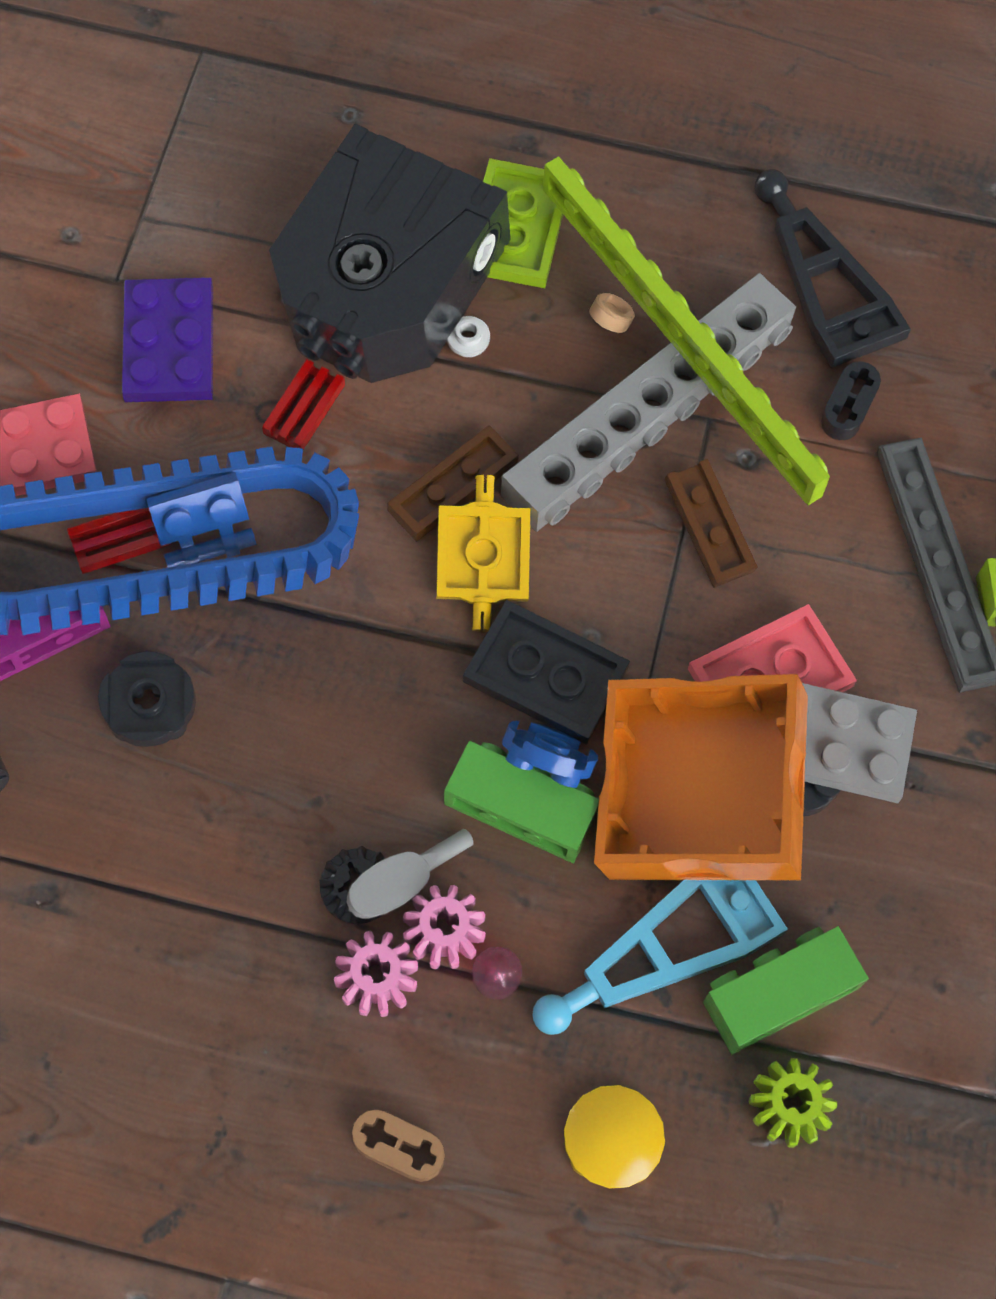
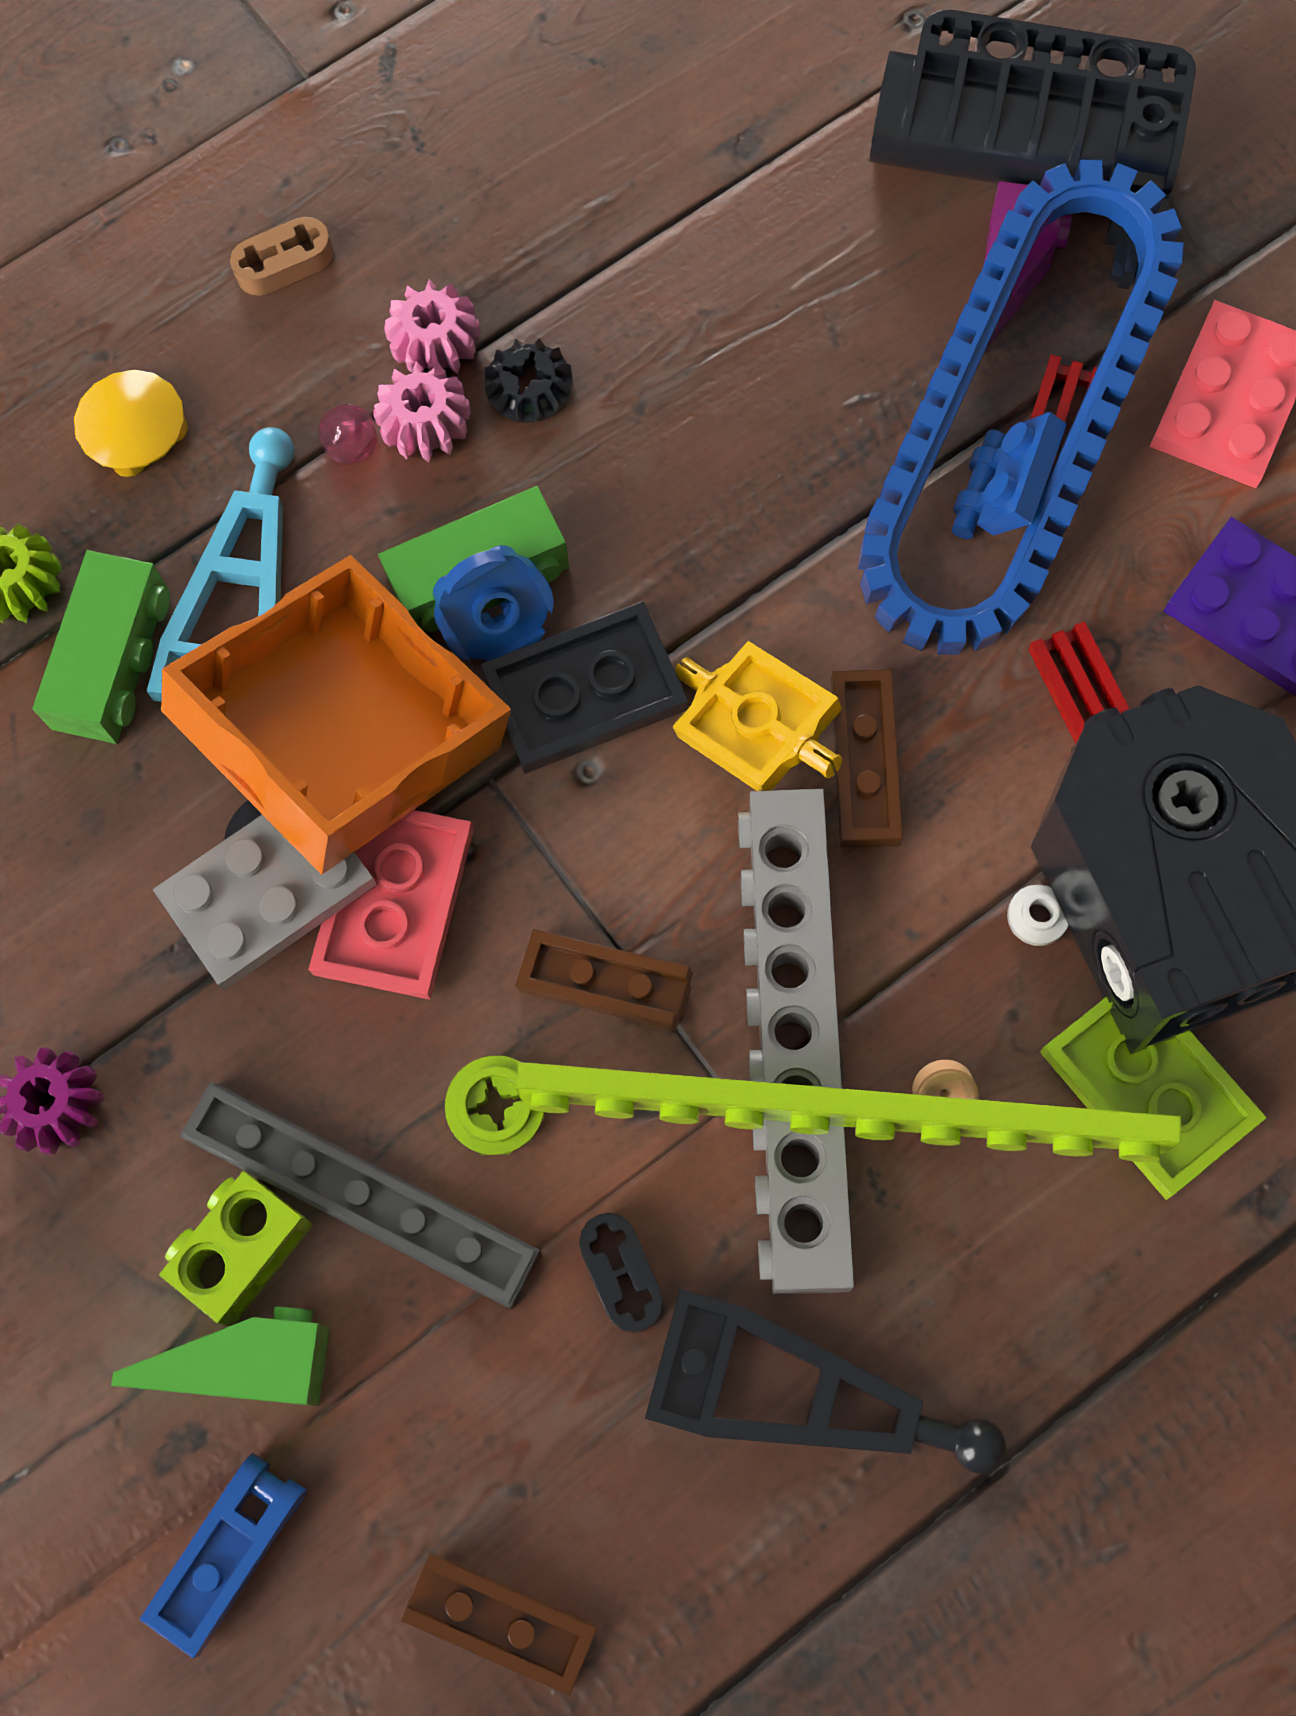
camera: 140 degrees right, 5 degrees up
(165, 719) = (855, 354): black plate -> none
(400, 877) = (492, 399): light grey piece -> none
(850, 527) = (469, 1092): none -> lime gear

